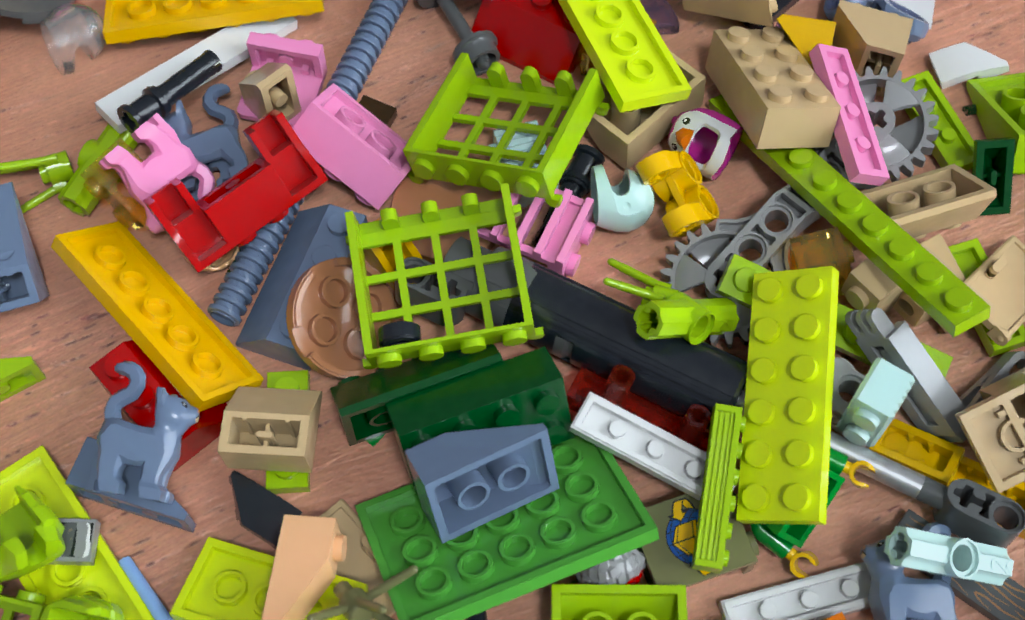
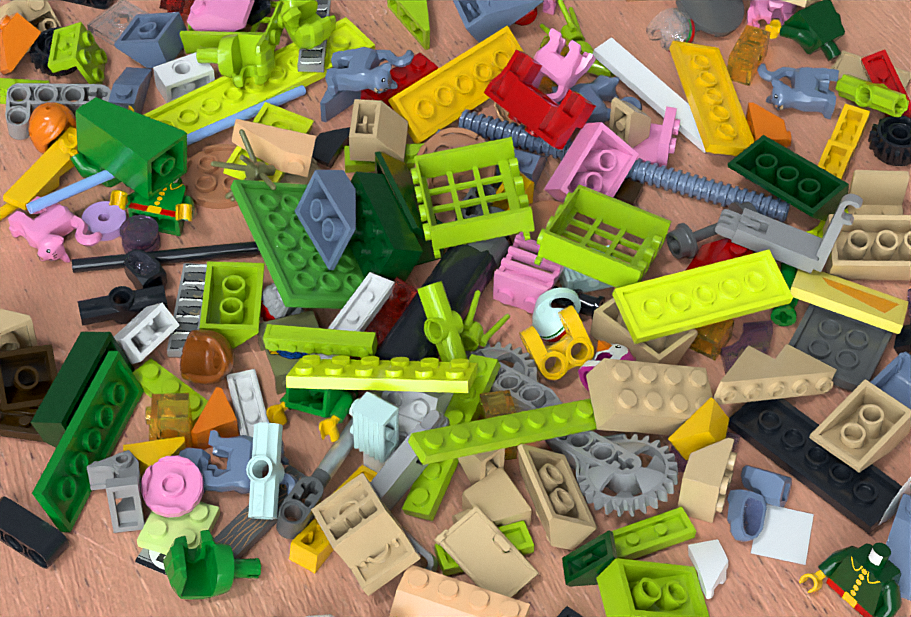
camera: 90 degrees right, 15 degrees down
(162, 97) = (613, 65): black pin -> none
(398, 333) = (428, 176): black tile -> none
(854, 126) = (622, 435): bright pink plate -> none

